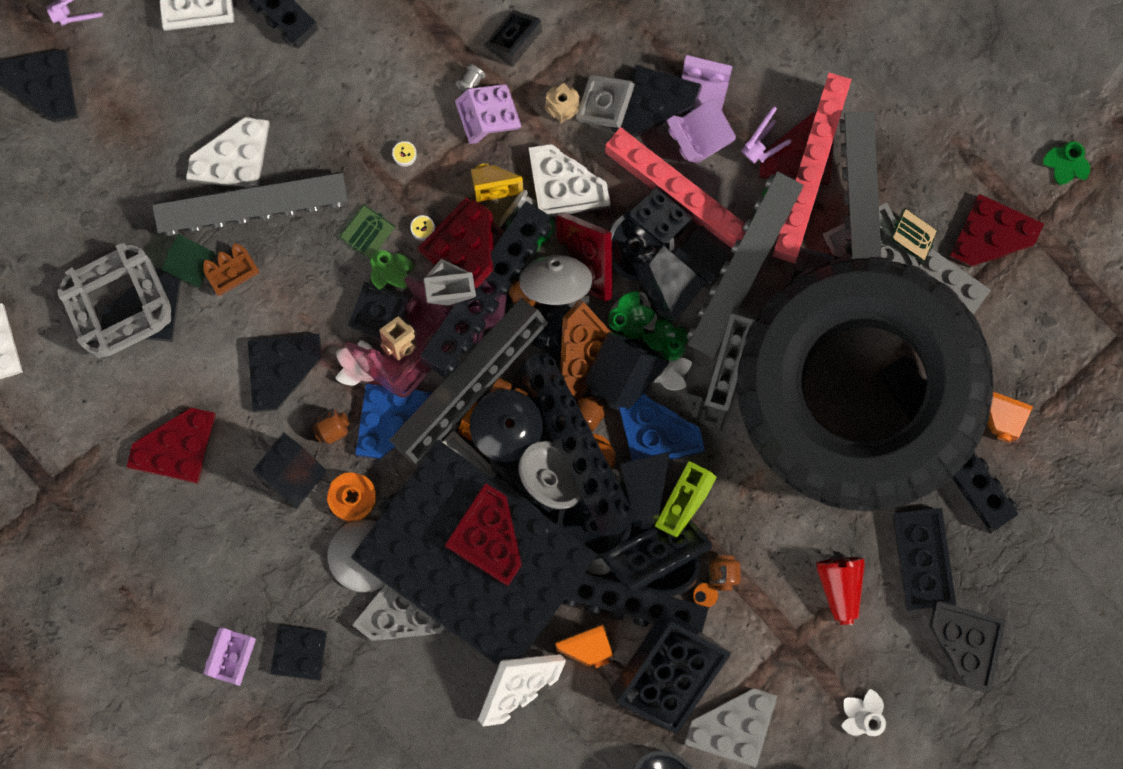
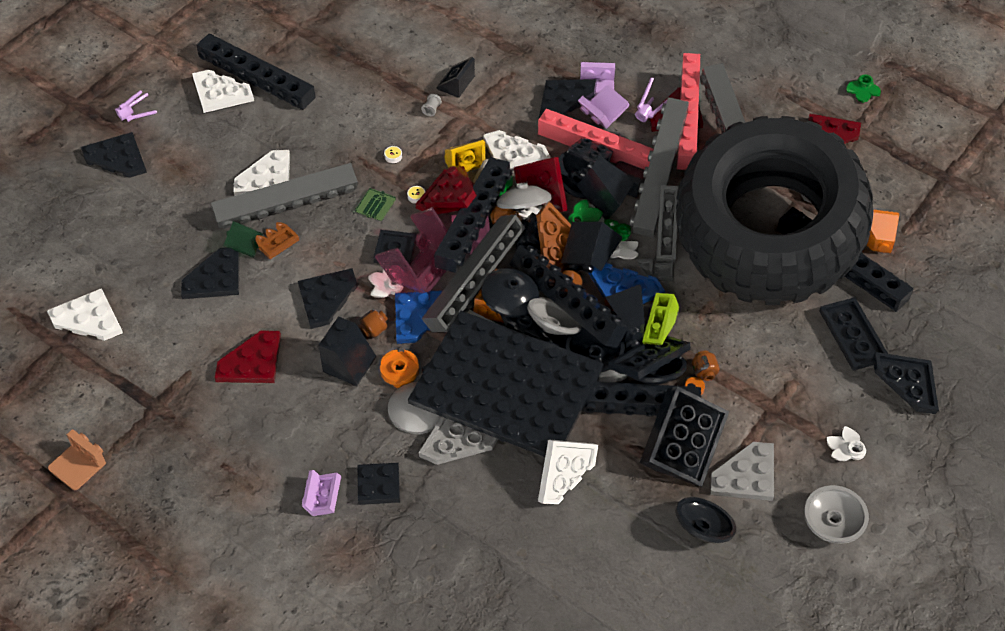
camera: 10 degrees left, 25 degrees down
(79, 282) = (174, 292): light grey plate -> none
(391, 272) = (393, 220): bright green plate -> none
(398, 338) = (414, 252): tan brick -> none
(448, 284) = (447, 207): light grey slope -> none
(487, 111) = (444, 118): lavender bracket -> none
(488, 536) = (515, 361): dark red plate -> none
(559, 109) = (500, 106): tan brick -> none
(587, 648) = (612, 431): orange slope -> none
(605, 101) = (530, 100): light grey plate -> none
(842, 586) = (799, 357): red cone -> none

